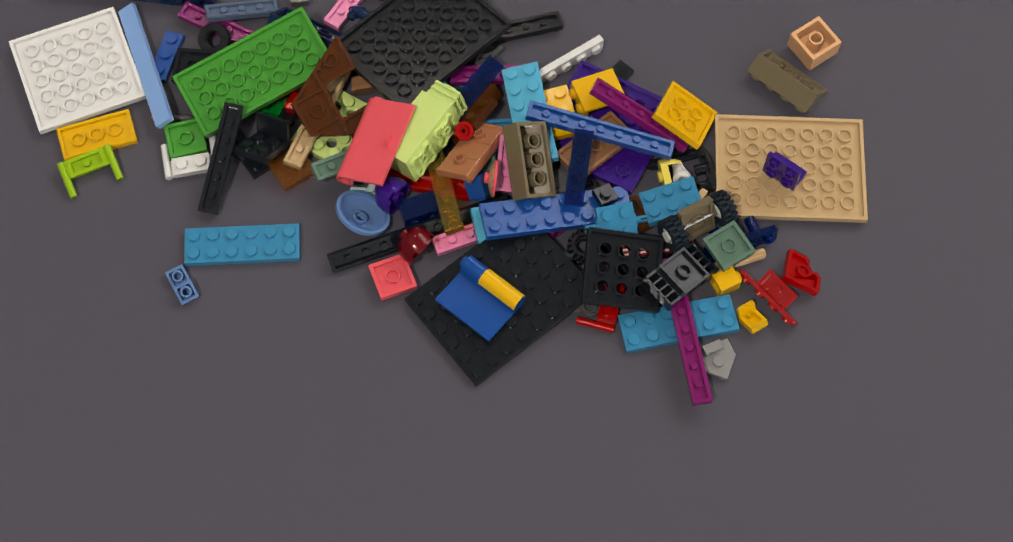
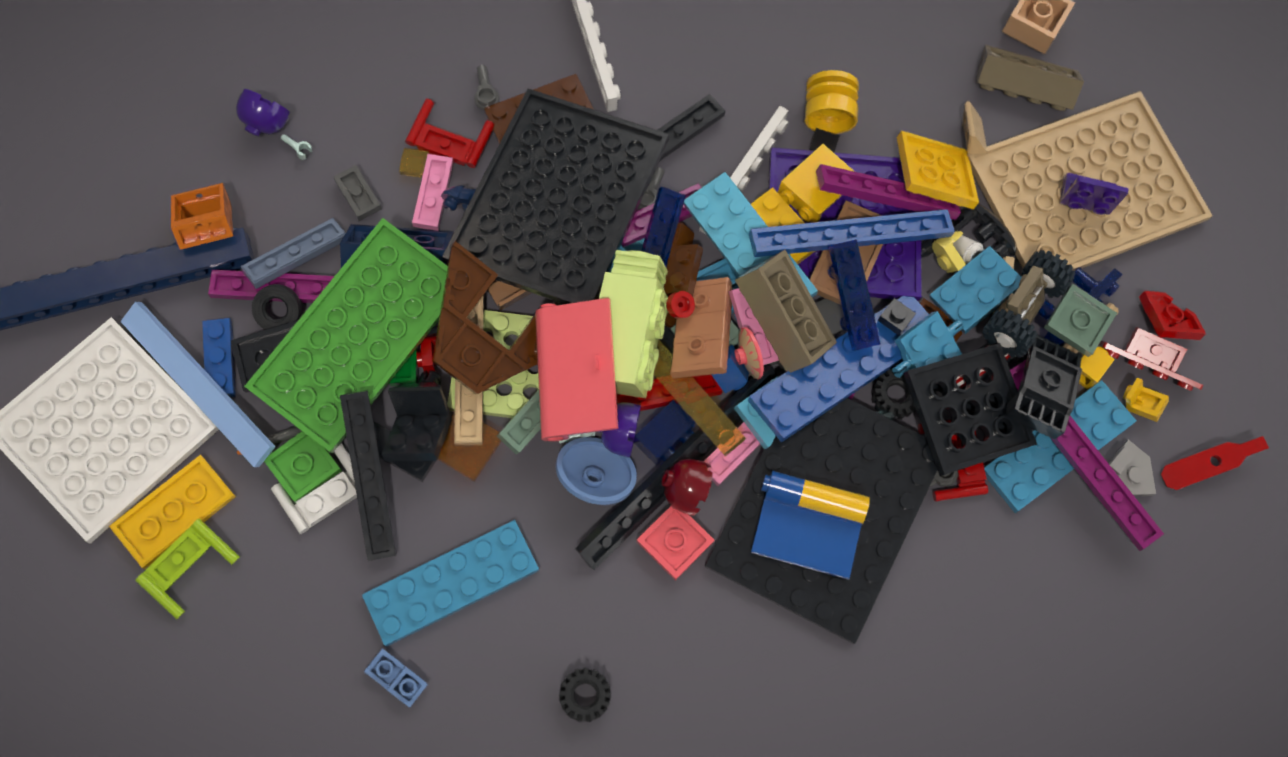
camera: 30 degrees left, 5 degrees up
(296, 352) = (567, 689): none -> black tyre
(636, 45) = (832, 101): none -> yellow wheel
(727, 100) = (973, 130): none -> tan slope
(766, 374) = (1199, 467): none -> red piece

